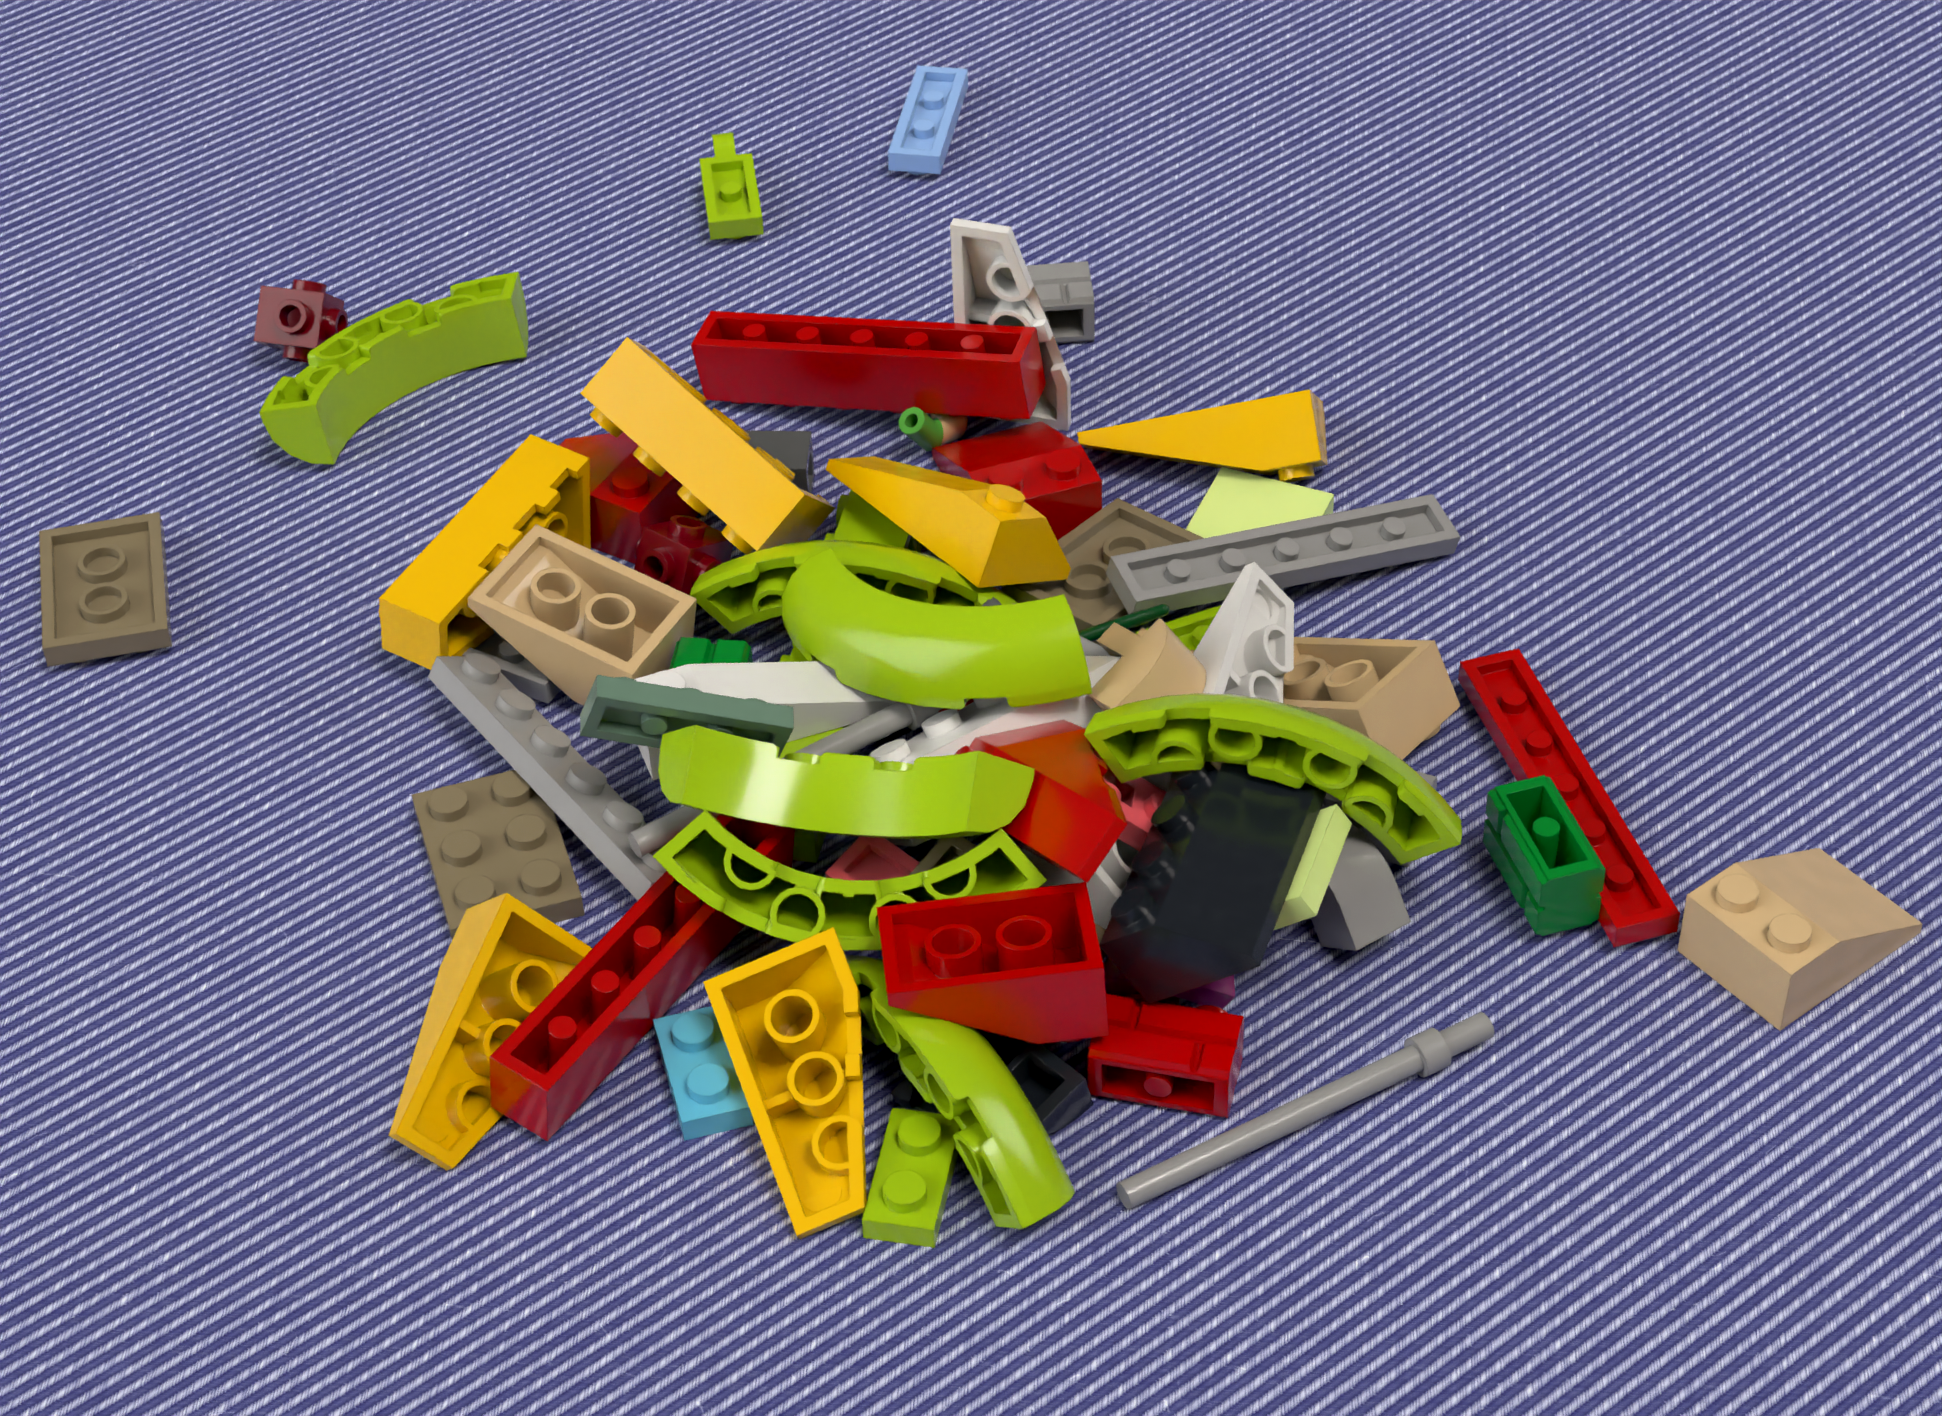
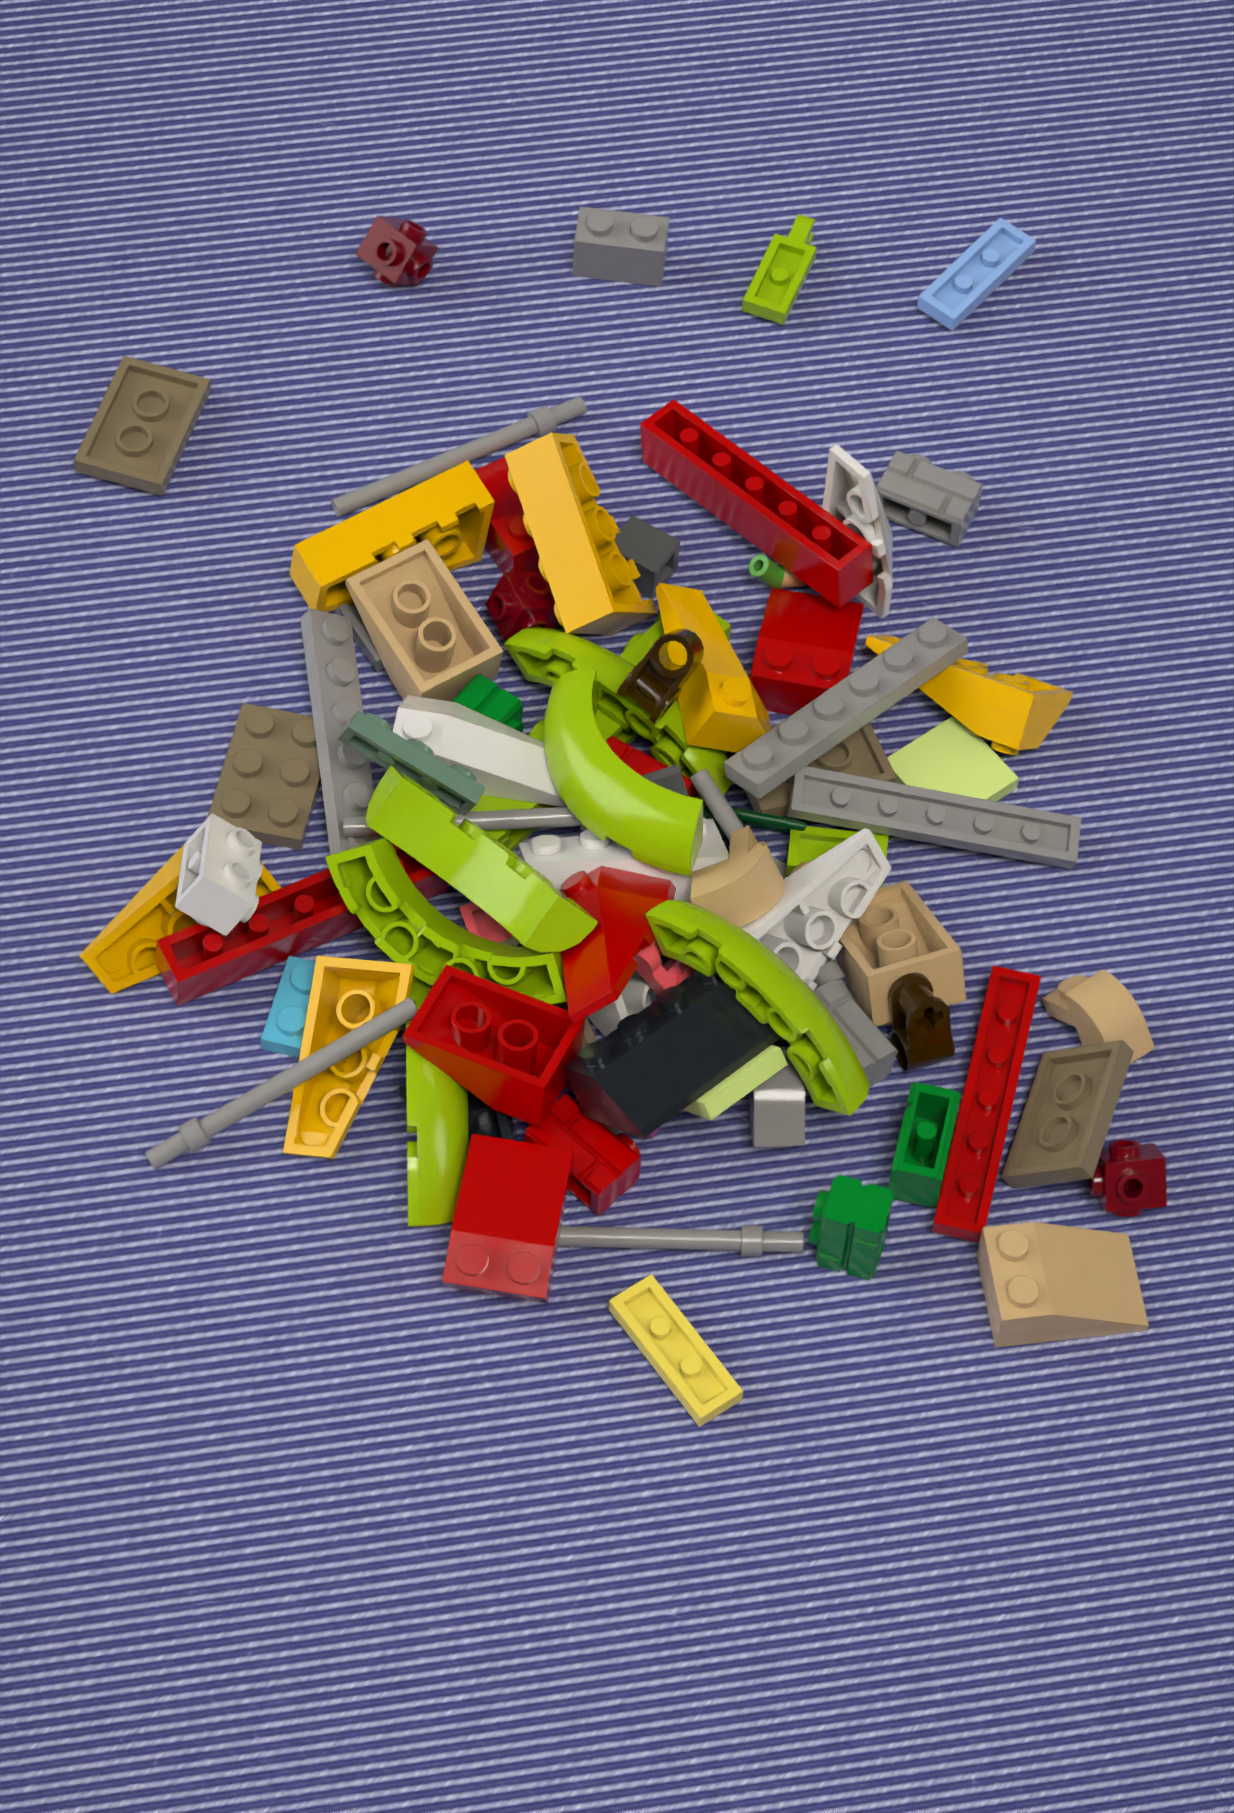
camera: 25 degrees right, 15 degrees up
(391, 357) = (440, 315): lime brick -> none
(530, 939) = (219, 875): none -> white brick
(544, 228) = (620, 246): none -> light grey brick
(563, 411) = (538, 423): none -> light grey bar
(677, 1260) = (197, 1133): none -> light grey bar
(911, 1179) = (372, 1153): lime plate -> none
(912, 516) = (656, 679): none -> dark brown piece
(1119, 488) = (845, 708): none -> light grey plate
(1145, 1161) = (508, 1218): none -> red slope
(1441, 738) = (919, 1023): none -> dark brown piece
(1441, 1207) = (675, 1350): none -> light yellow plate
(1543, 967) = (851, 1226): none -> green brick
(1624, 647) = (1100, 1011): none -> tan brick
(1668, 755) = (1067, 1114): none -> dark tan plate
(1782, 784) = (1129, 1178): none -> dark red brick

